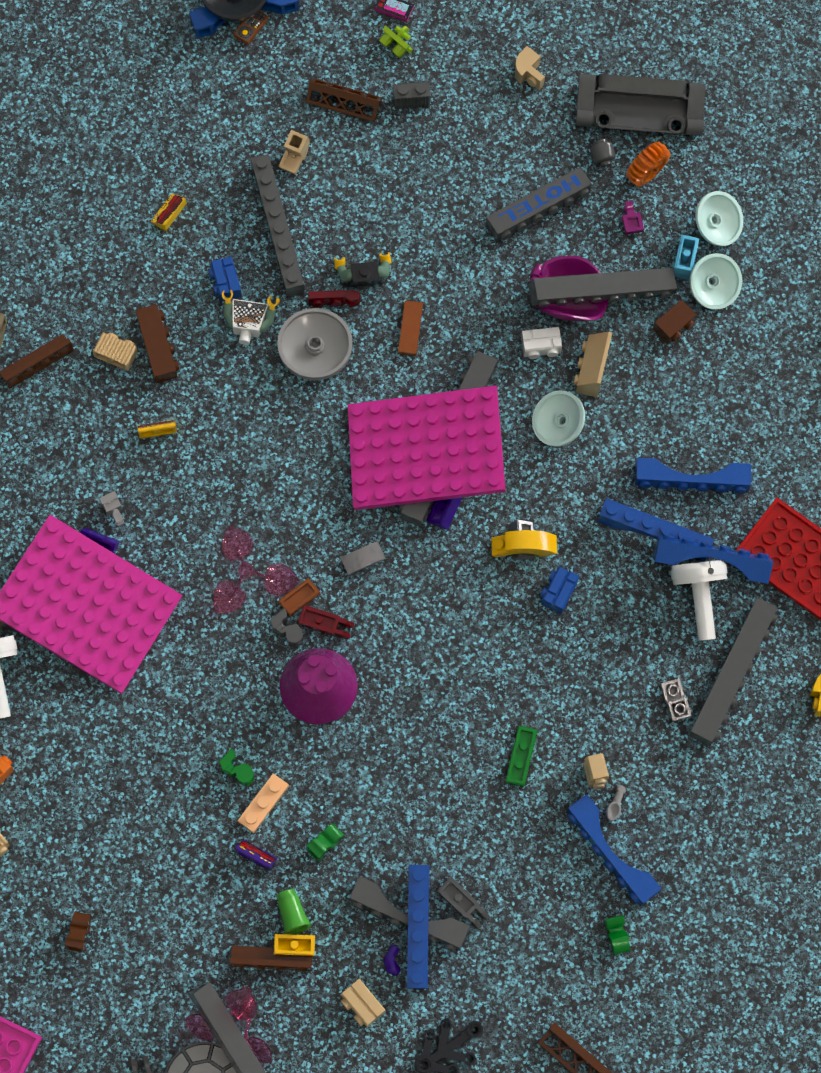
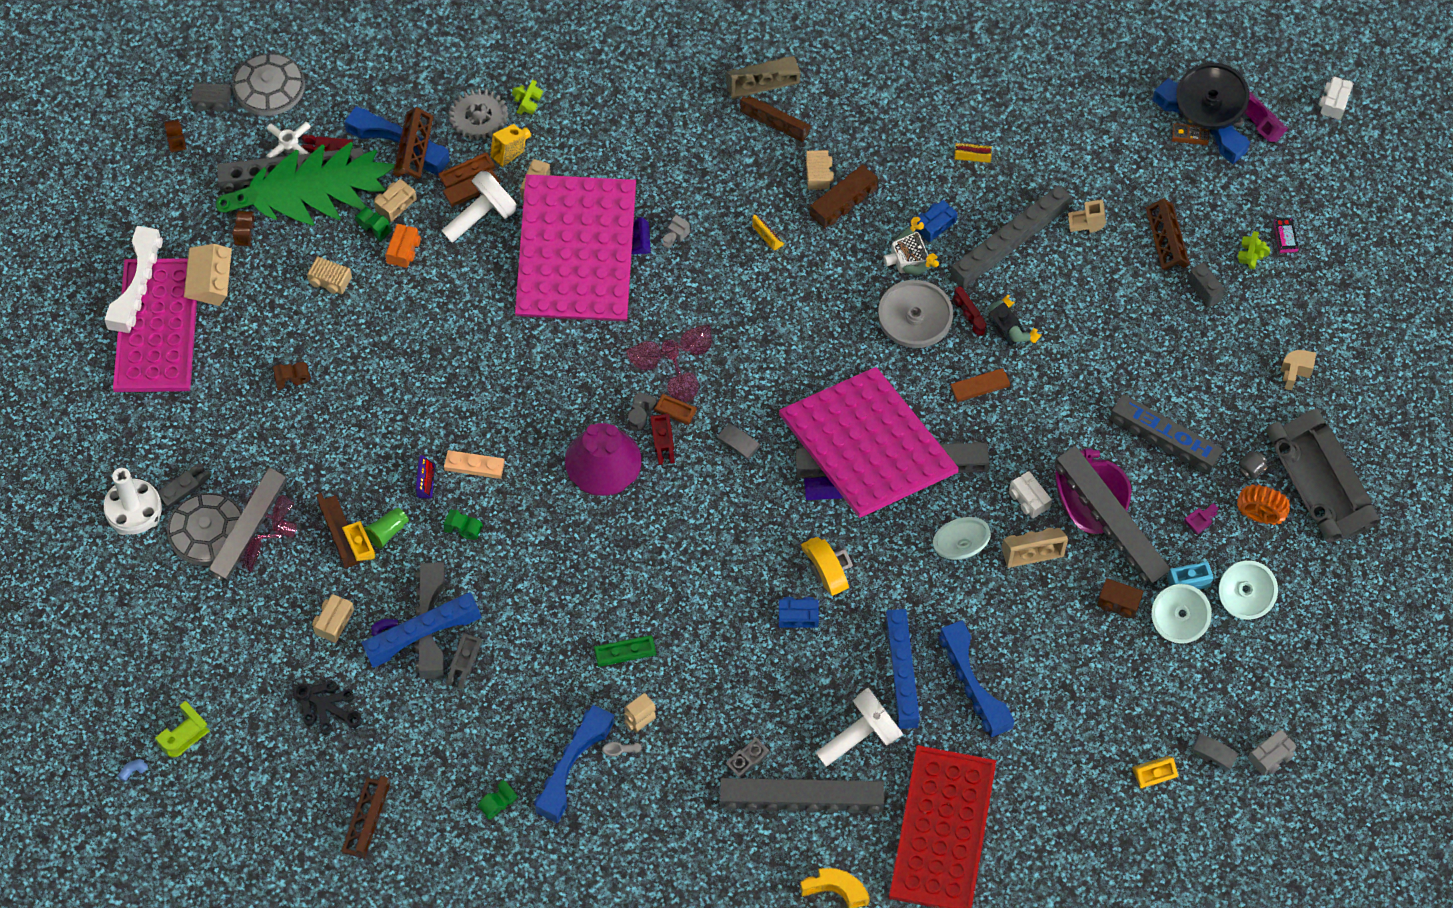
camera: 65 degrees right, 10 degrees down
(243, 772) = (491, 434): green leg -> none
(673, 551) = (909, 758): blue arch -> none

